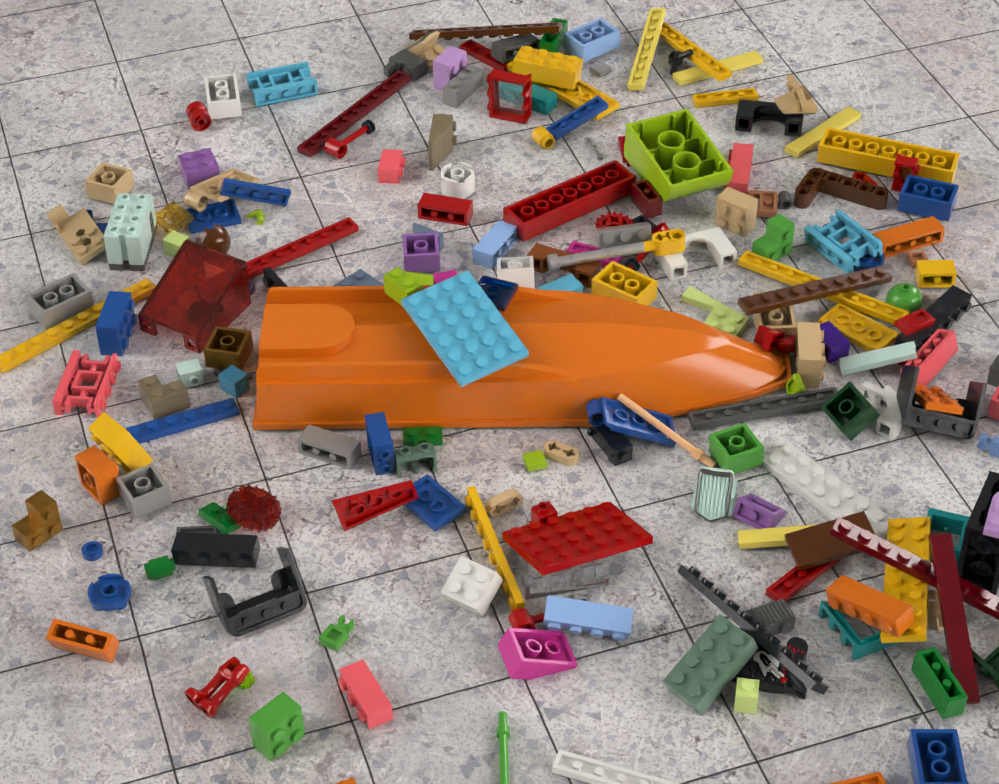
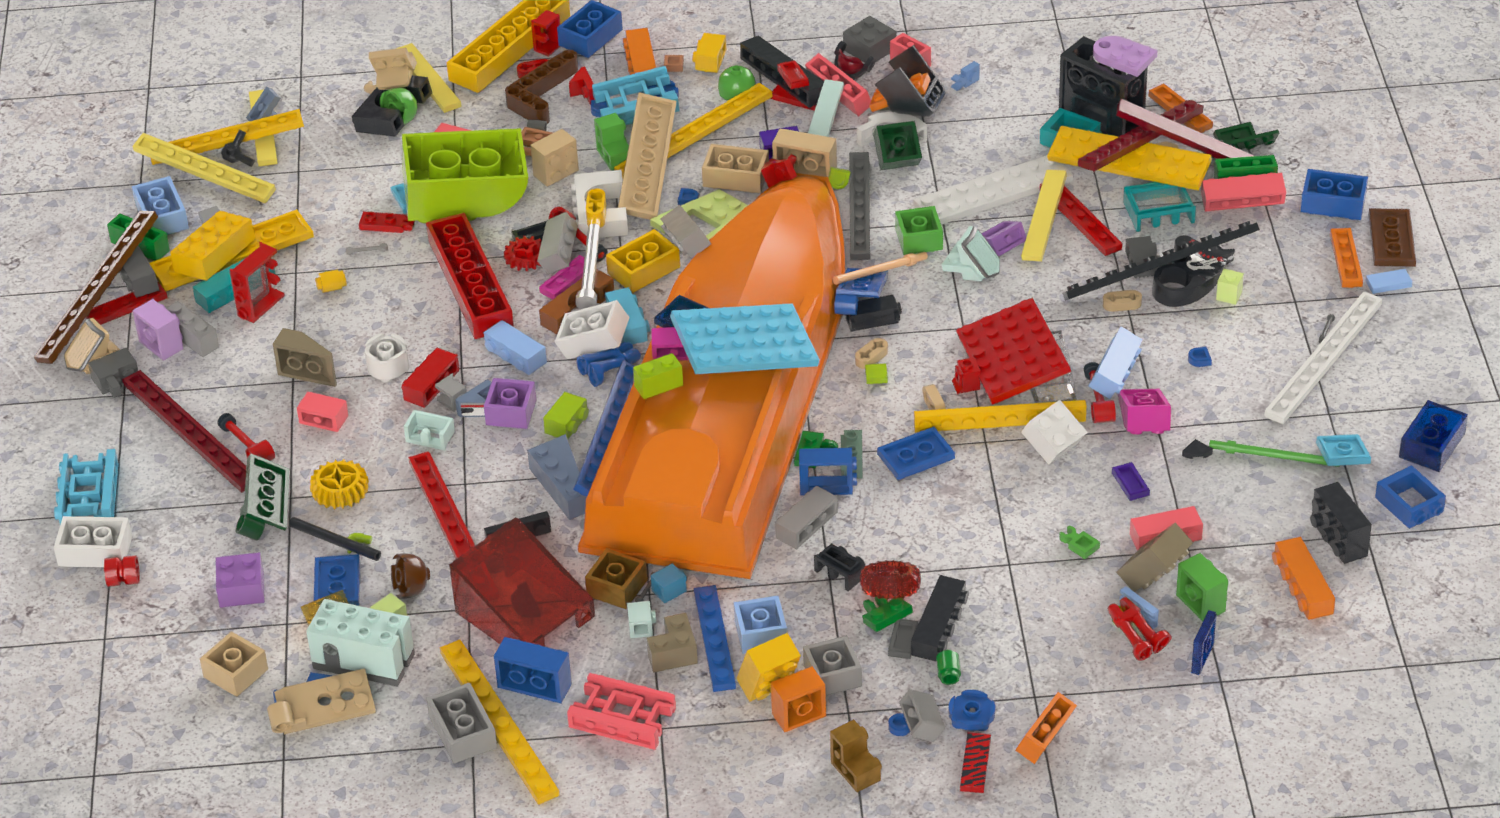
camera: 75 degrees left, 0 degrees up
(49, 606) = (975, 762): none -> red tile
(93, 558) = (922, 715): none -> light grey brick
(187, 439) = (758, 621): none -> light blue brick
(198, 194) = (300, 559): tan hinge -> none
(201, 737) = (1203, 642): none -> clear blue tile
(243, 214) = (335, 539): none -> black piece
(253, 688) = (1148, 611): none -> light blue tile
(255, 192) = (334, 523): blue tile -> none
(271, 160) = (263, 507): none -> hinge
(281, 602) = (1022, 583): black windscreen -> none
(284, 471) = (840, 562): none -> black window
(297, 678) = (1155, 558): none -> dark tan brick
(312, 191) = (339, 484): none -> yellow gear
(370, 504) = (919, 490): red wing -> none
(385, 212) = (429, 424): none -> light aqua window
(432, 220) = (451, 390): none -> light grey window
(435, 661) = (1130, 481): none -> dark purple tile
(492, 706) = (1197, 449): none -> black tile
(577, 117) = (312, 243): blue plate -> none
(636, 690) = (1199, 357): none -> blue tile
(646, 199) = (495, 218): dark red brick -> none
(648, 293) = (684, 232): none -> light grey brick
(696, 618) = (1122, 300): none -> tan beam
(710, 664) = (1201, 292): sand green brick -> none
(724, 97) = (324, 133): yellow tile -> none
(728, 57) = (264, 105): none -> sand blue slope
(731, 301) = (687, 195): none -> blue tile
(761, 261) = (647, 156): none -> tan plate
(767, 121) = (401, 100): none -> bright green cylinder
(814, 290) = (714, 128): reddish brown plate -> none
(816, 547) = (1067, 192): reddish brown tile -> none
(855, 209) = (581, 85): none -> red slope
(859, 328) = (745, 129): yellow tile -> none
(870, 606) = (1168, 178): orange brick -> none
(908, 687) = (1243, 191): none -> coral brick
(968, 362) = (851, 65): none -> cap

